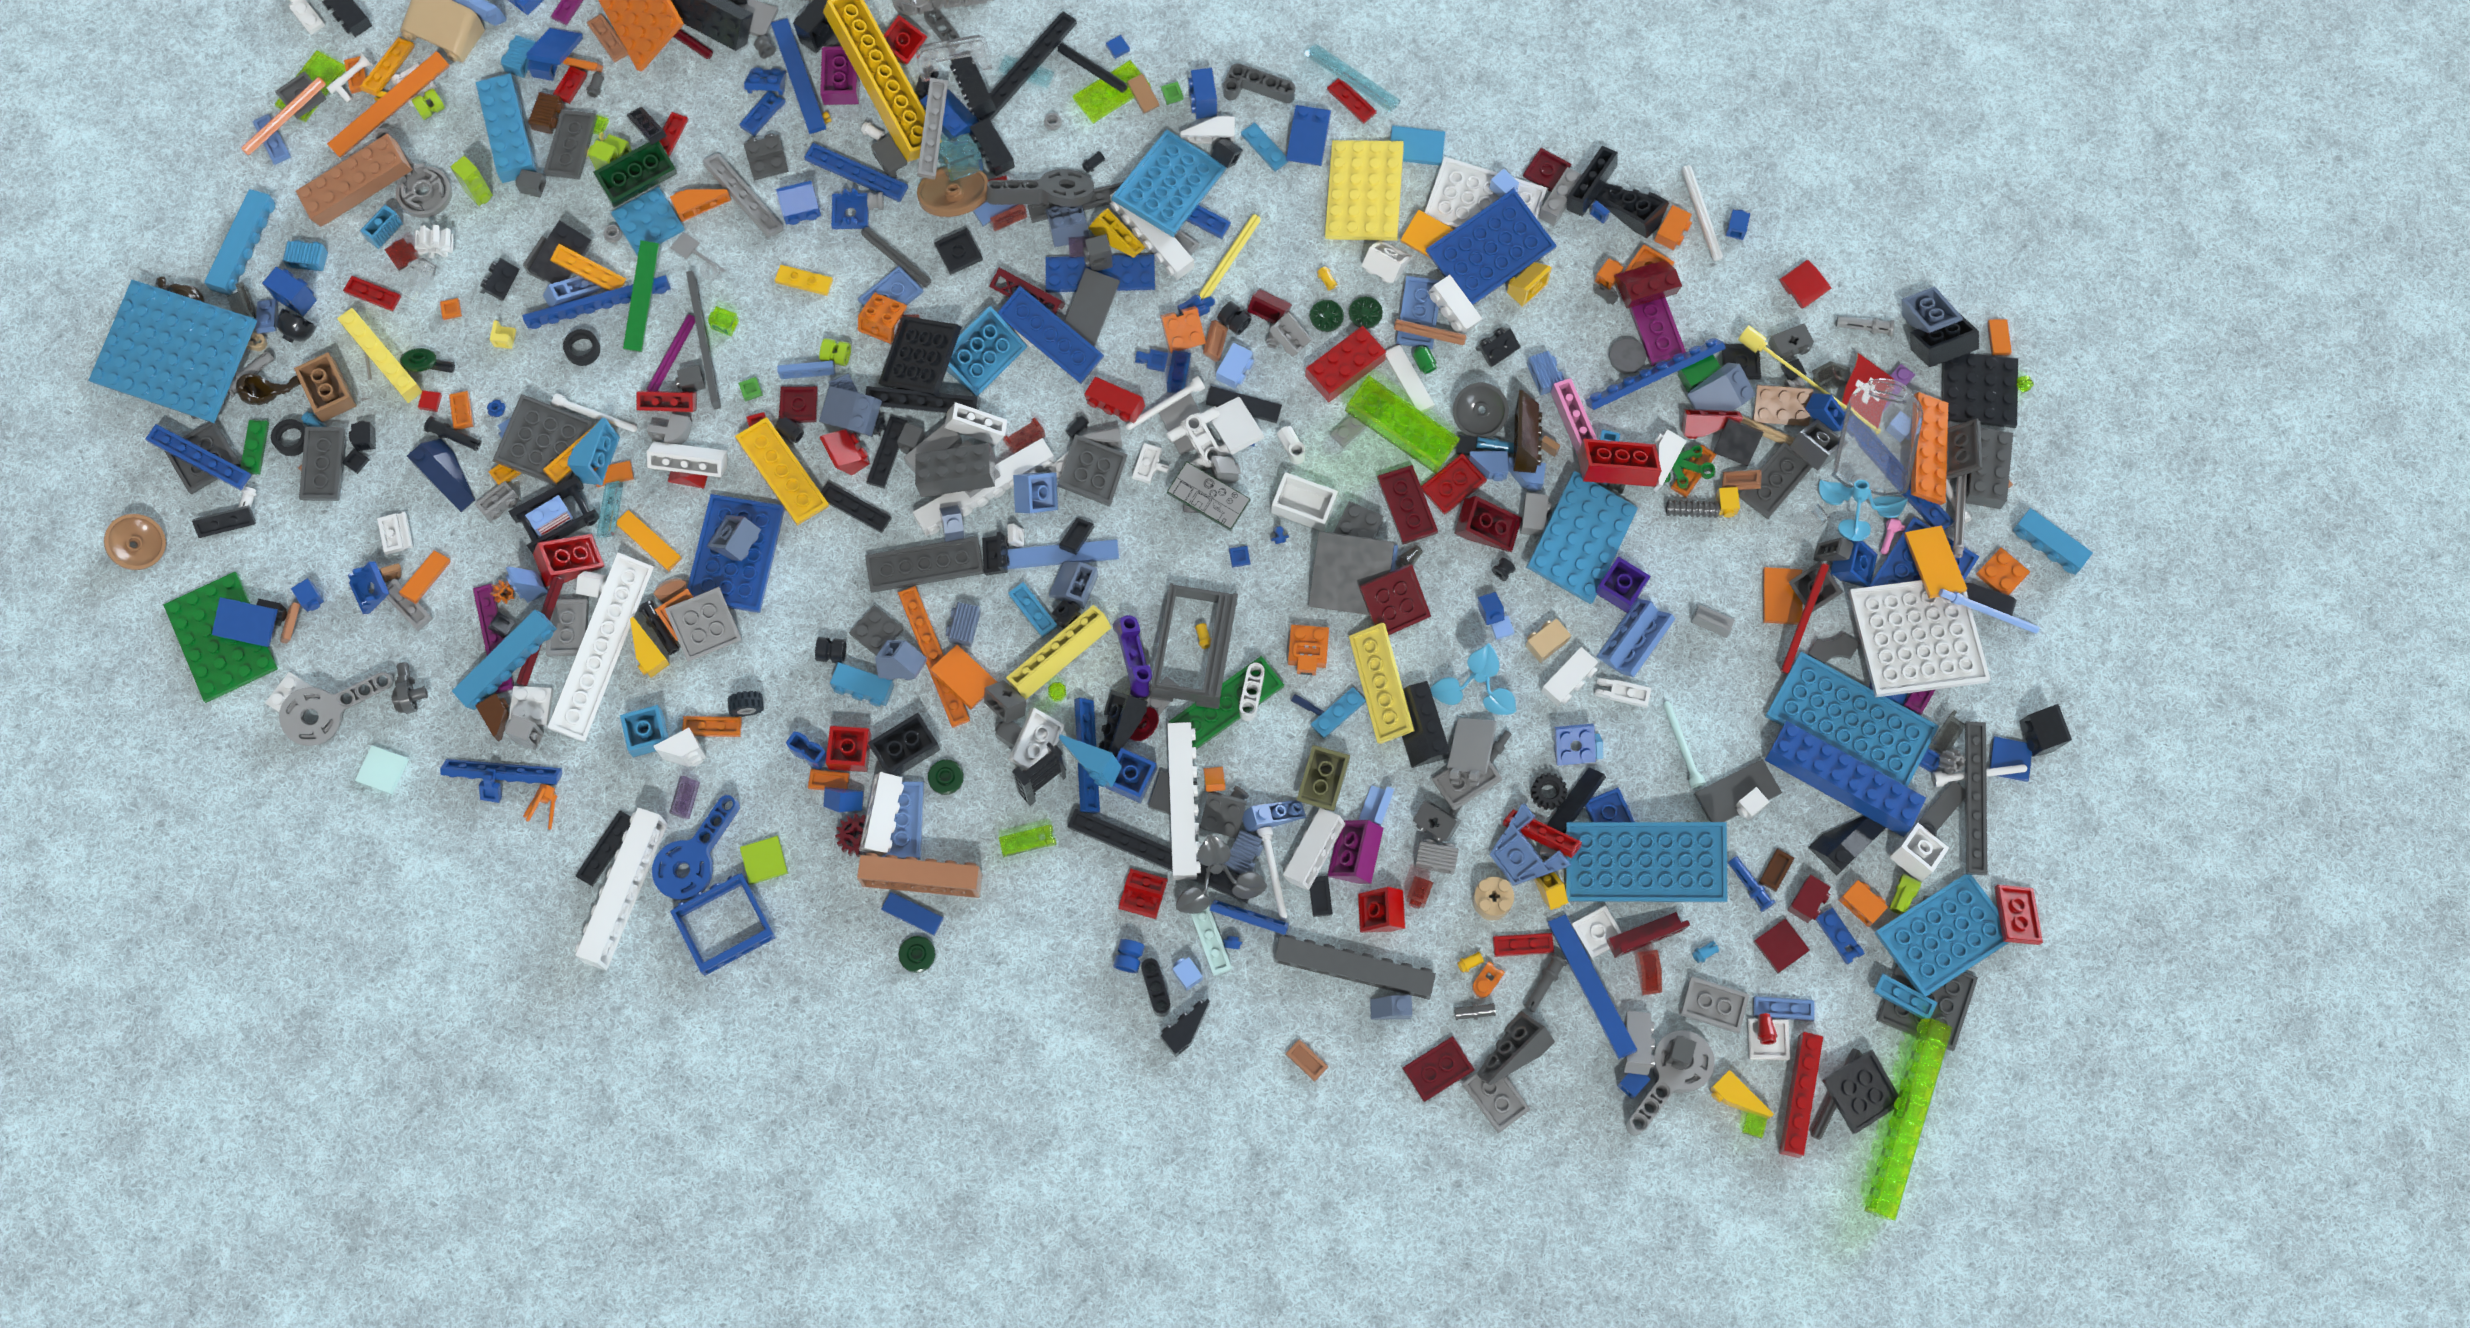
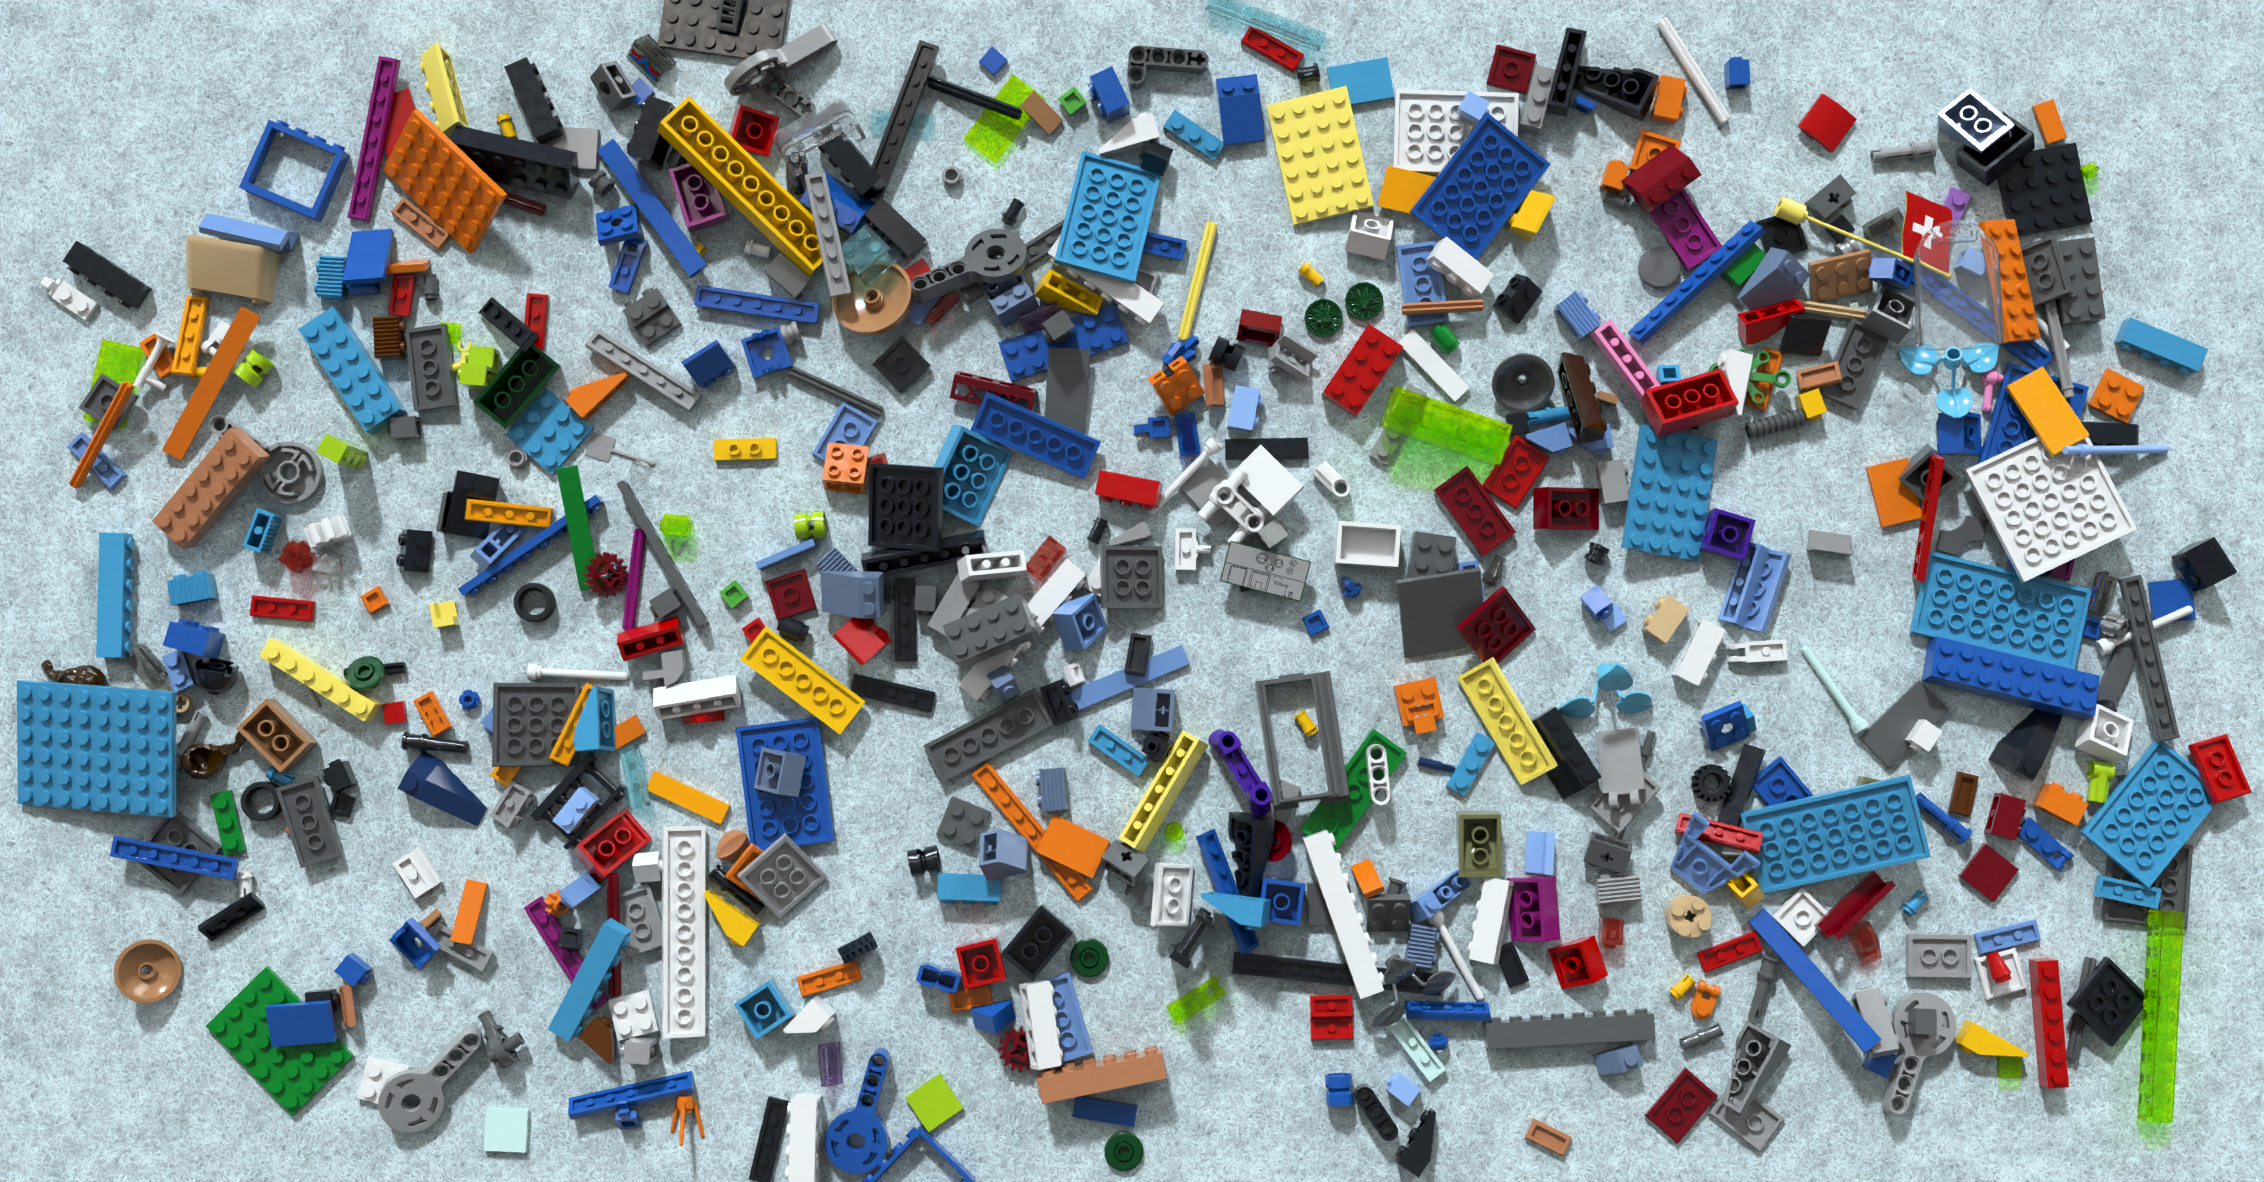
camera: 15 degrees left, 15 degrees up
(644, 347) = (602, 566): none -> dark red gear
(1375, 126) = (1311, 69): none -> black bush
(1835, 550) = (1948, 425): dark grey slope -> none

